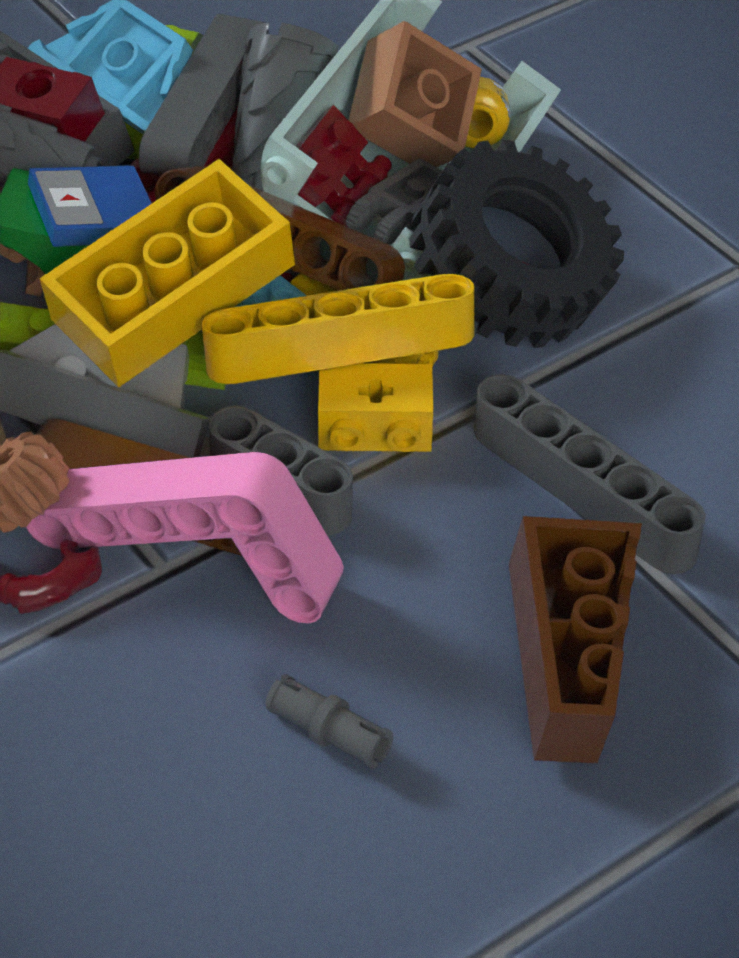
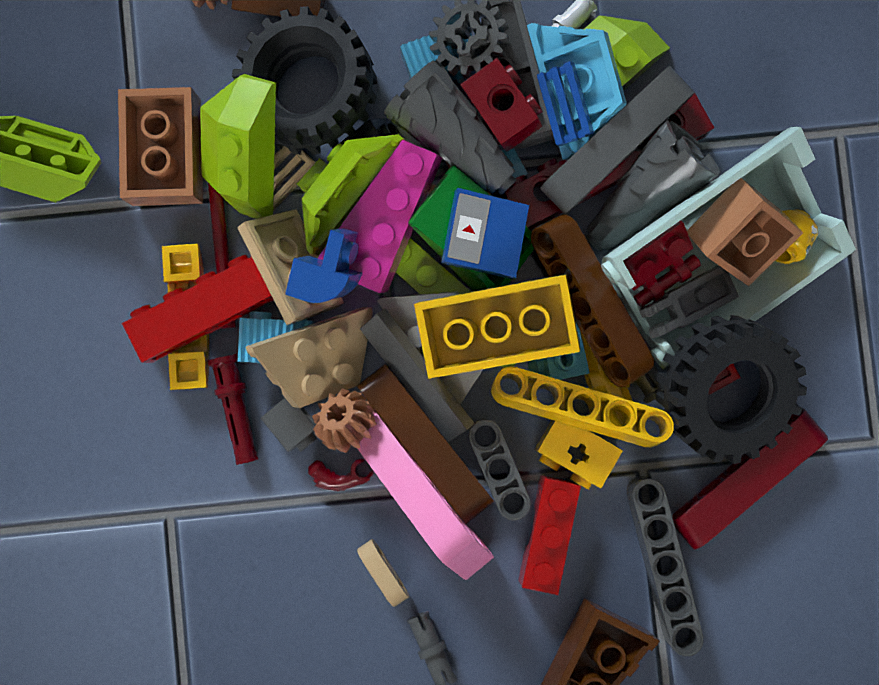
camera: 30 degrees right, 40 degrees up
(94, 59) = (551, 107): none -> blue tile
(189, 658) = (383, 573): none -> tan beam
(415, 522) = (550, 535): none -> red arch
(621, 342) = (747, 482): none -> dark red beam

